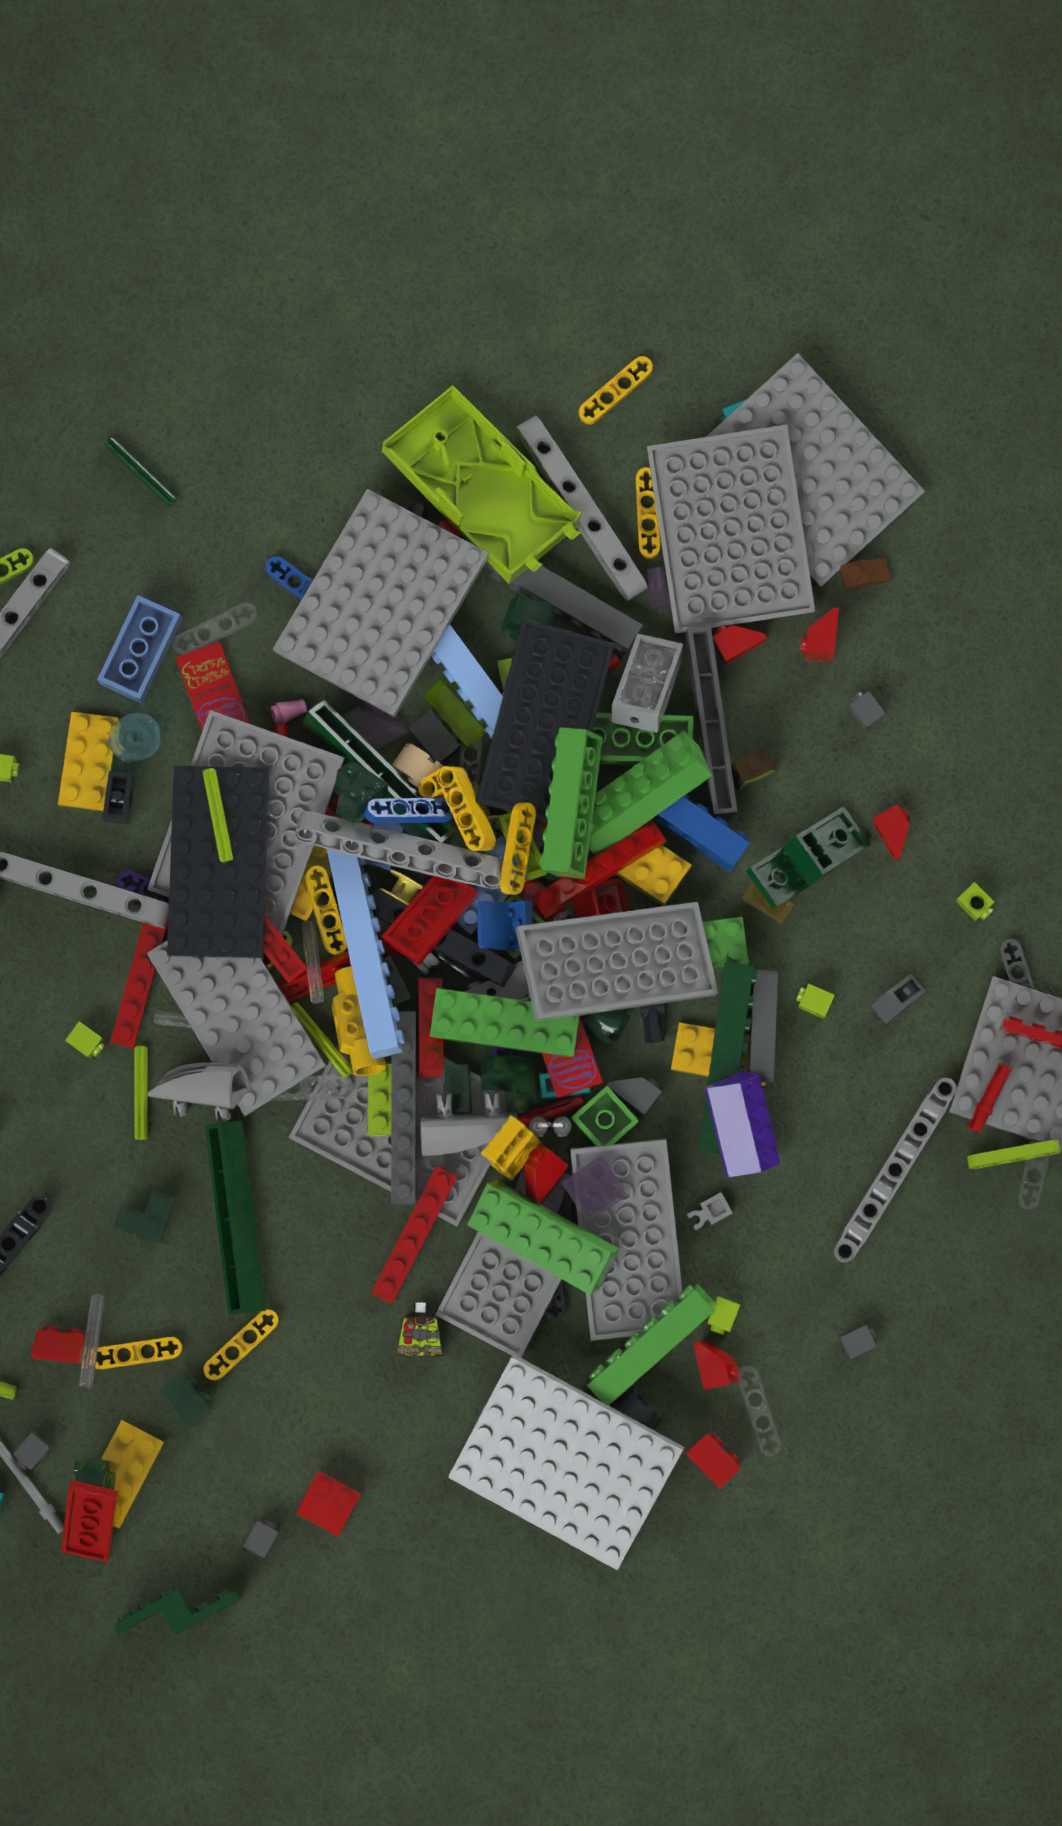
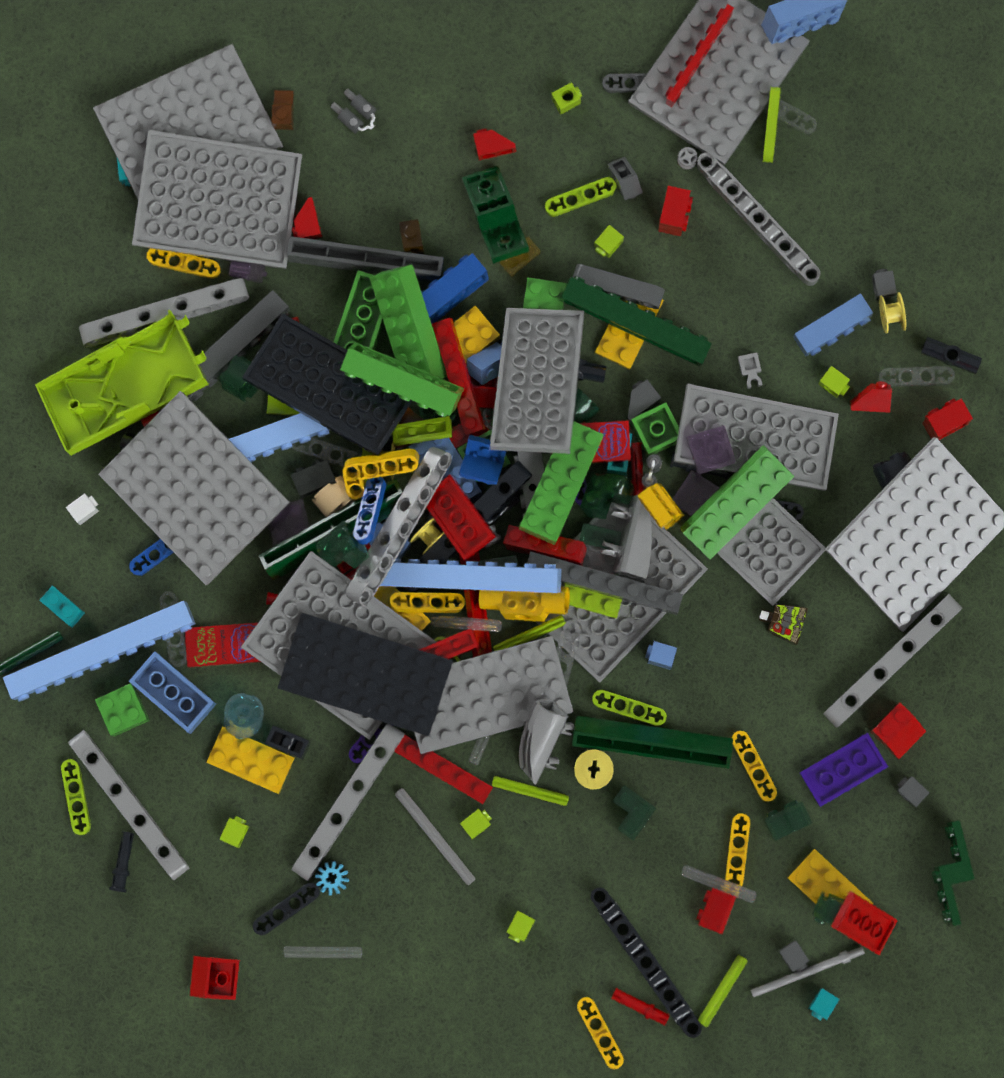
camera: 70 degrees left, 0 degrees up
(58, 998) = (435, 836): none -> light grey axle
(104, 598) = (122, 710): none -> bright green brick
(165, 551) = (99, 650): none -> light blue brick
(178, 1170) = (603, 763): none -> light yellow piece
(204, 494) = (62, 606): none -> teal brick
(217, 815) = (331, 663): lime axle -> none
(265, 1451) = (843, 769): none -> dark purple plate
(266, 1180) = (630, 704): none -> lime beam
(286, 711) = (257, 589): bright pink cone -> none
(325, 484) = (83, 508): none -> white brick
(338, 1199) = (661, 655): none -> medium blue brick
(409, 1474) = (892, 661): none -> light grey beam
(414, 1234) = (705, 604): red plate -> none
(454, 713) = (299, 457): clear neon green tile -> none
(514, 847) = (425, 432): yellow beam -> none
(542, 1172) = (685, 489): red slope -> none
(613, 388) = (77, 260): yellow beam -> none
(624, 895) = (485, 364): none -> medium blue brick
(647, 683) = (321, 297): brick -> none
(650, 1346) = (845, 441): bright green brick -> none
(742, 1124) = (692, 322): slope -> none
(794, 1296) = (832, 325): none -> medium blue brick
(796, 1429) = (963, 359): none -> black piece
(821, 638) = (326, 154): red slope -> none
(824, 1360) = (892, 313): none -> light yellow piece
(863, 951) = (579, 194): none -> lime beam
(866, 710) = (391, 138): dark grey brick -> none
(873, 1068) = (674, 211): none -> red brick
(895, 664) = (362, 106): none -> dark grey piece
(947, 1063) = (689, 155): none -> light grey wheel
(987, 1102) = (731, 135): red pin -> none

